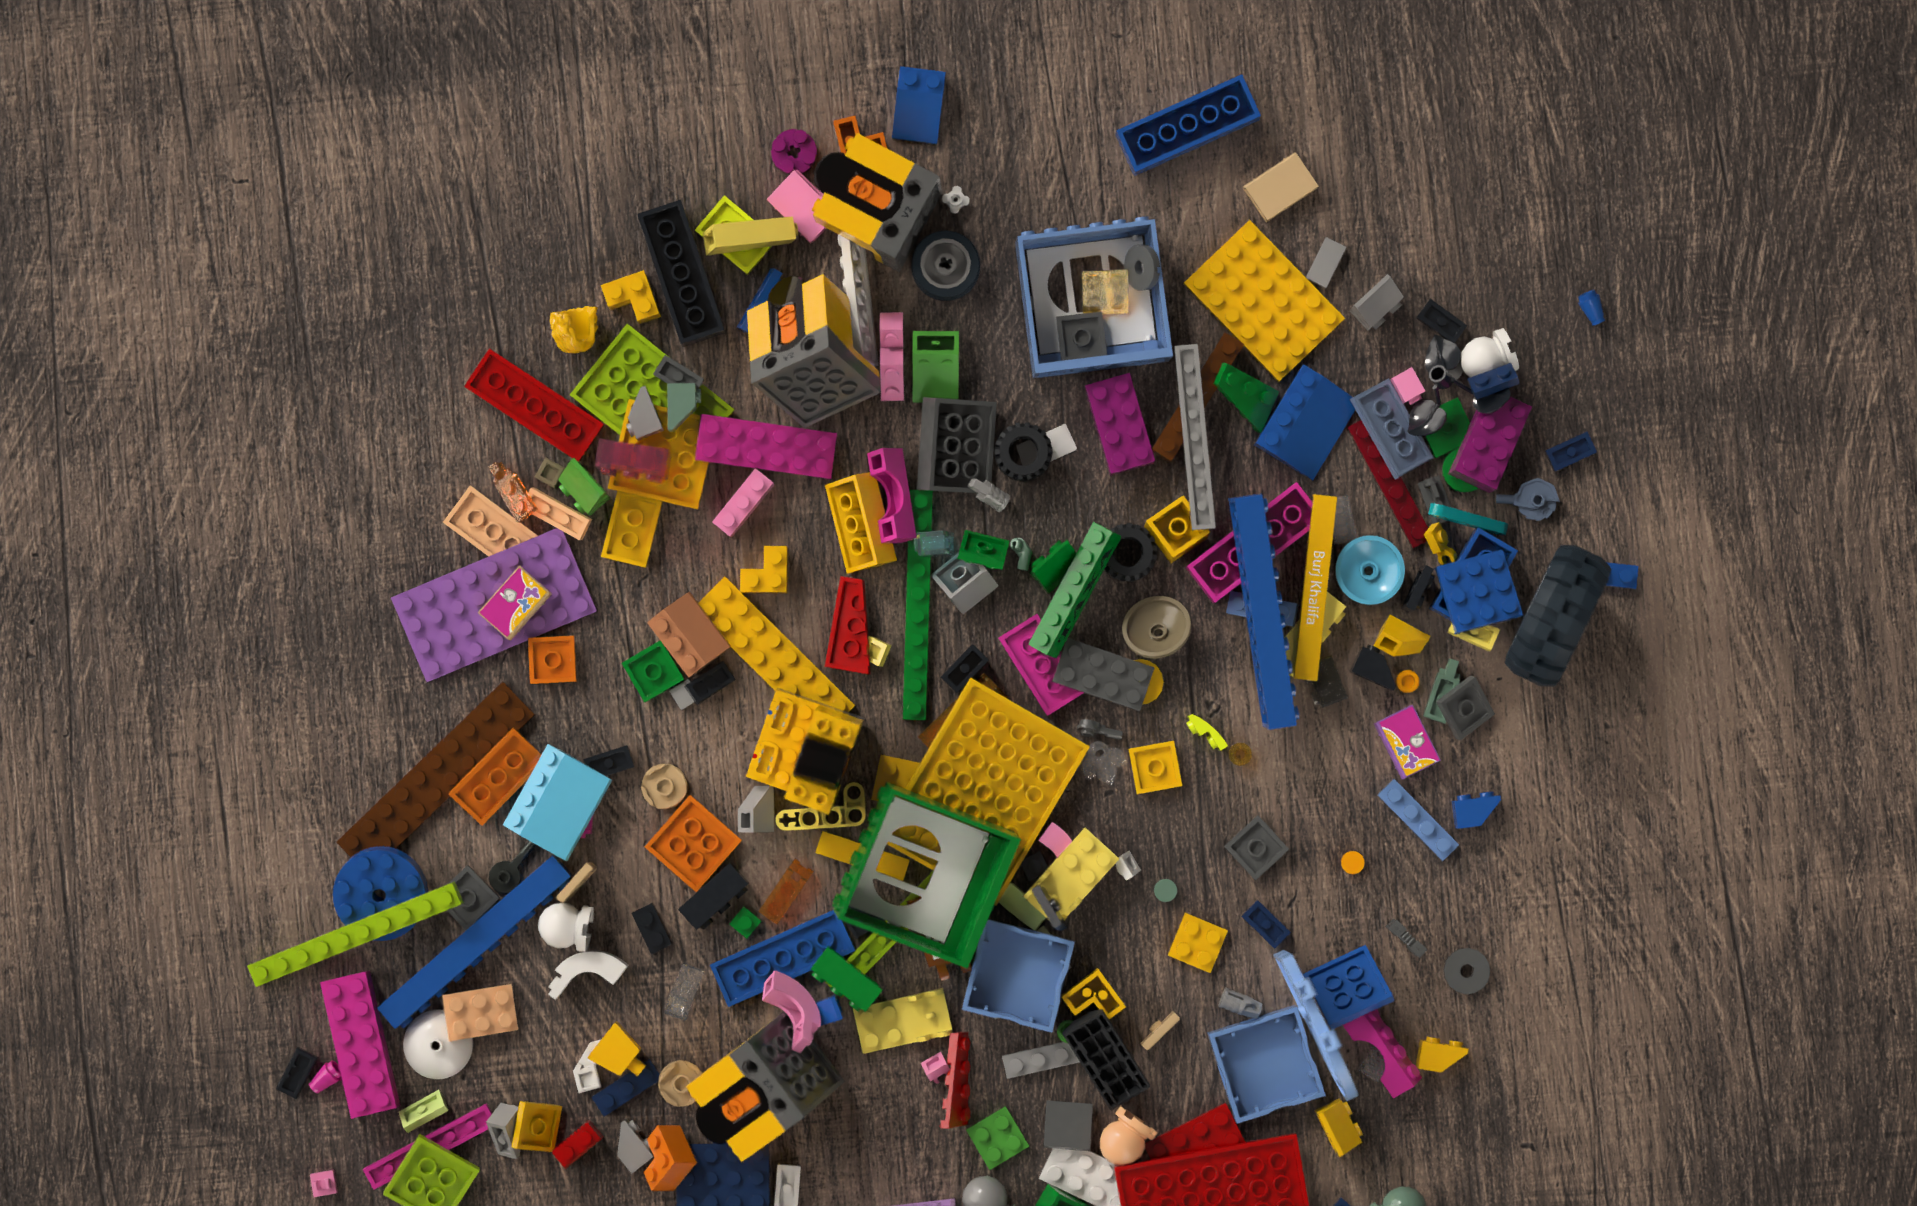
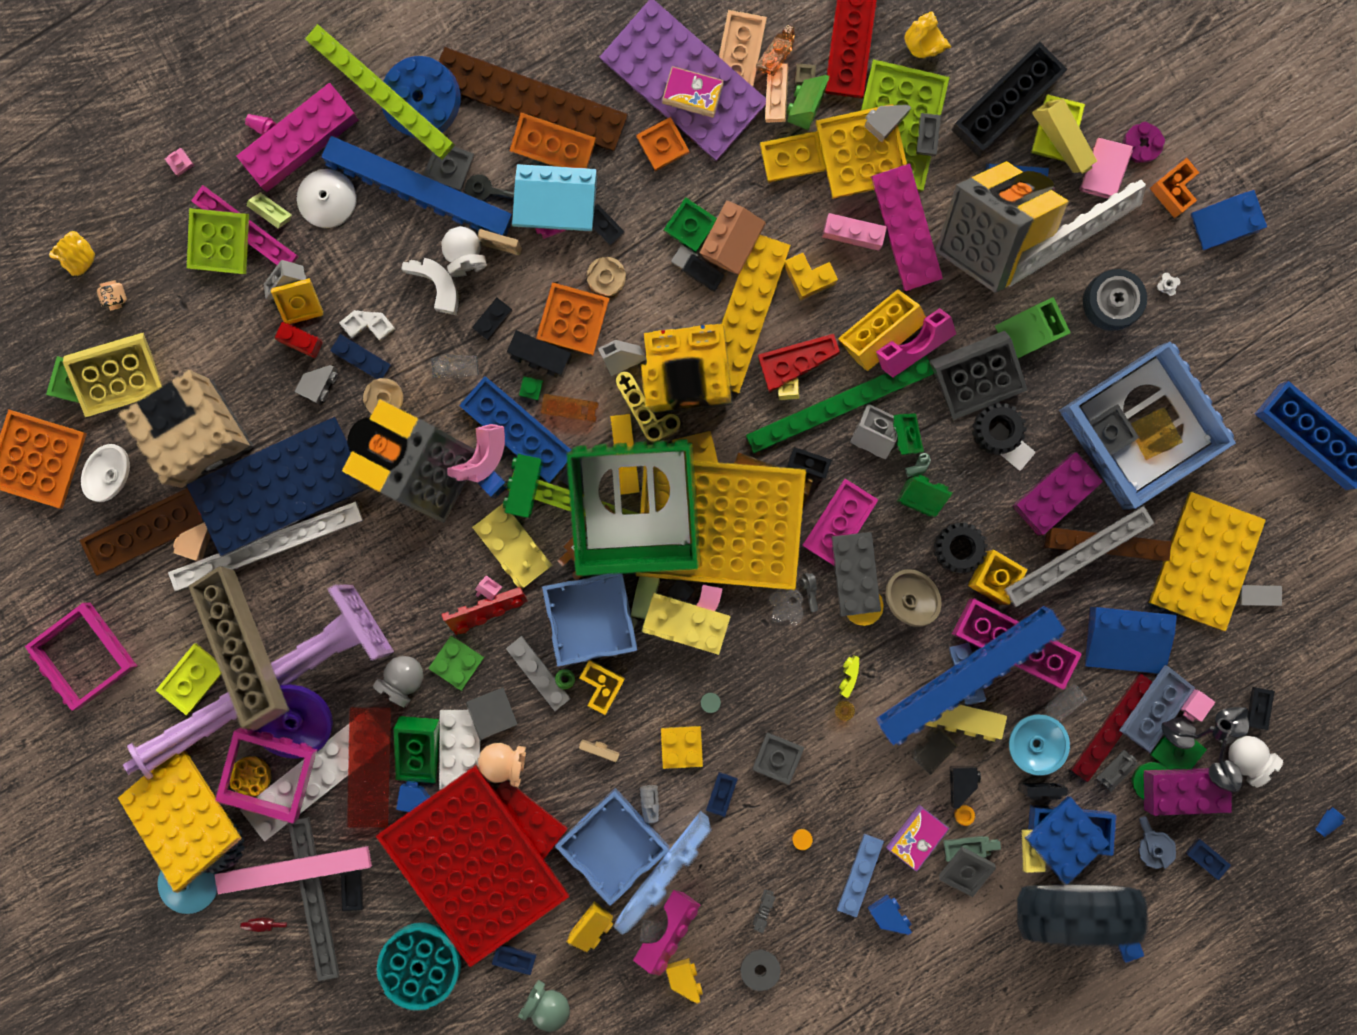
camera: 60 degrees right, 0 degrees up
(297, 1072) = (253, 101): black plate -> none
(479, 1012) = (365, 217): light nougat plate -> none
(618, 1052) = (384, 336): yellow torso -> none
(633, 290) = (976, 68): yellow brick -> none
(633, 460) = (848, 126): clear pink brick -> none
(672, 1158) = (321, 416): orange brick -> none
(681, 403) = (910, 144): sand green slope -> none
(875, 199) = (1146, 217): piece -> none
(891, 356) = (1023, 292): bright pink arch -> none
(934, 543) = (895, 393): clear light blue slope -> none
(989, 494) = (953, 418): light grey hinge -> none
(1050, 907) = (655, 618): black plate -> none
(1074, 590) = (913, 519): green brick -> none
(1105, 1058) = (557, 718): black piece -> none
(1127, 865) = (715, 663): white plate -> none
(1134, 259) = (1196, 443): dark grey tile -> none
(1155, 767) = (802, 649): yellow plate -> none
(1248, 394) = (1130, 583): green wing -> none
(1280, 187) = (1303, 532): tan piece -> none
(1315, 587) = (1006, 708): yellow tile -> none
(1349, 987) = (704, 885): blue plate -> none
(1377, 303) = (1251, 650): light grey slope -> none
(1400, 638) = (996, 794): yellow slope -> none
(1438, 540) = (1087, 787): yellow plate -> none
(1467, 519) = (1117, 802): teal beam -> none
(1493, 381) = (1239, 772): dark blue plate -> none

